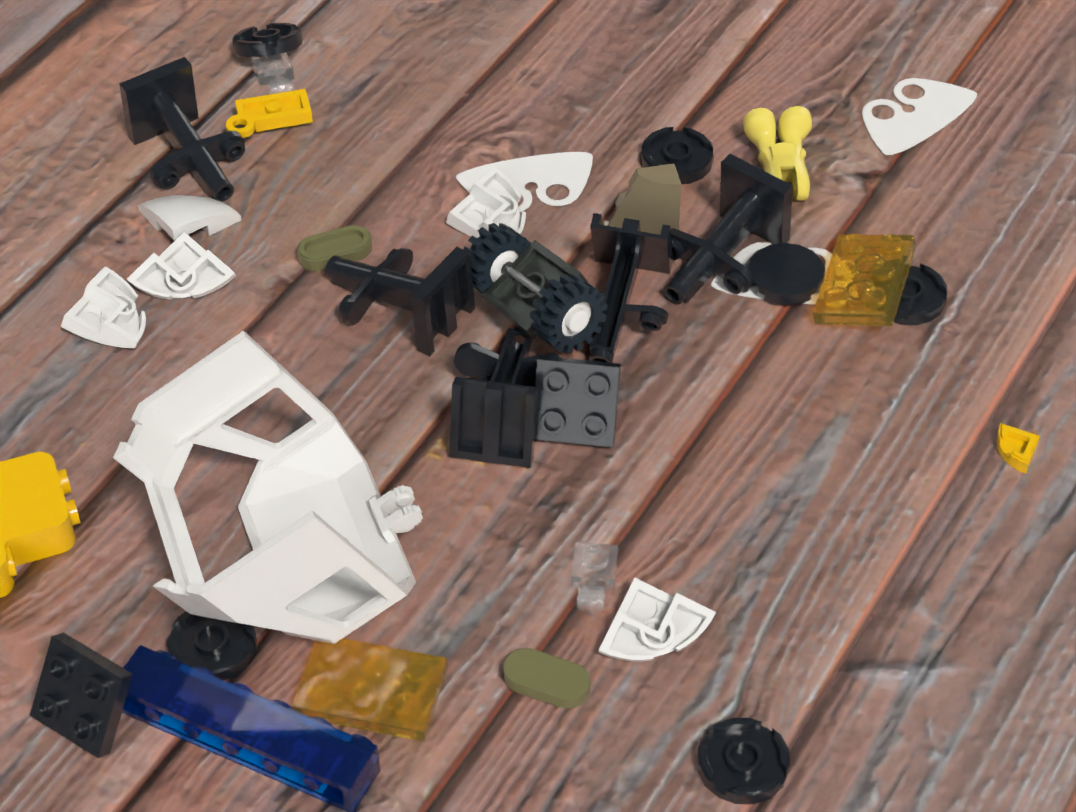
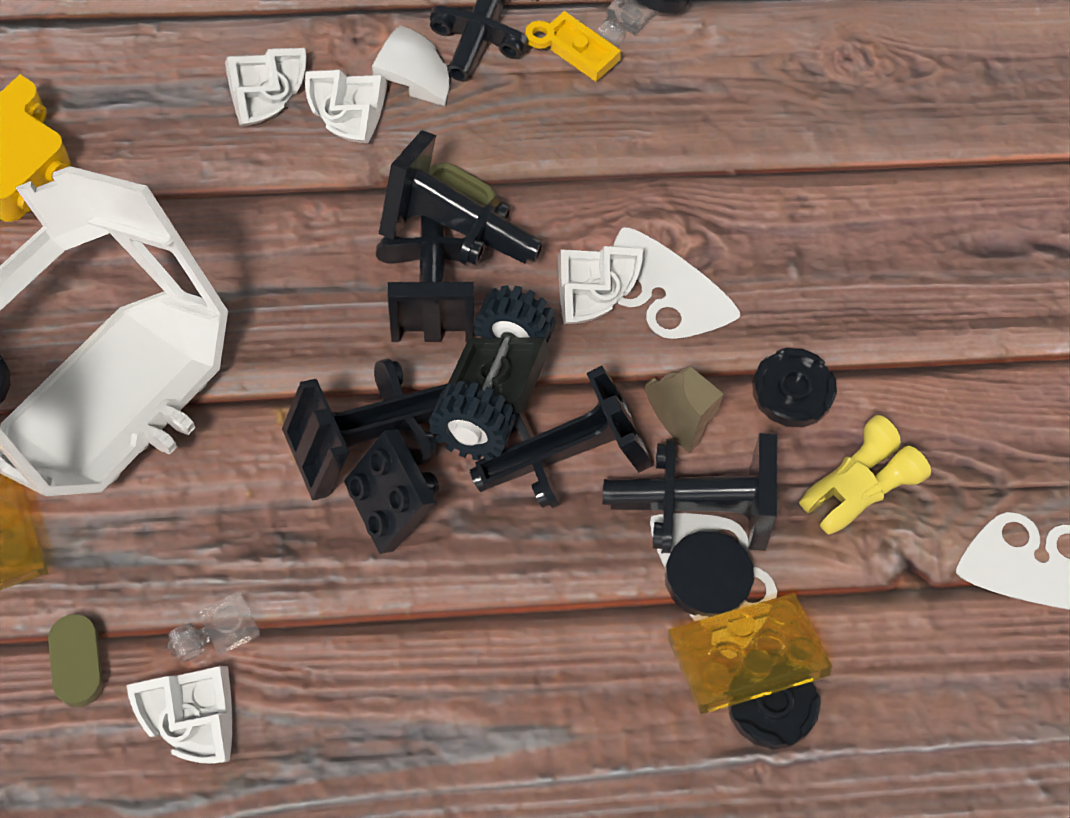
camera: 50 degrees right, 15 degrees up
(328, 252) = (416, 192): none -> black piece

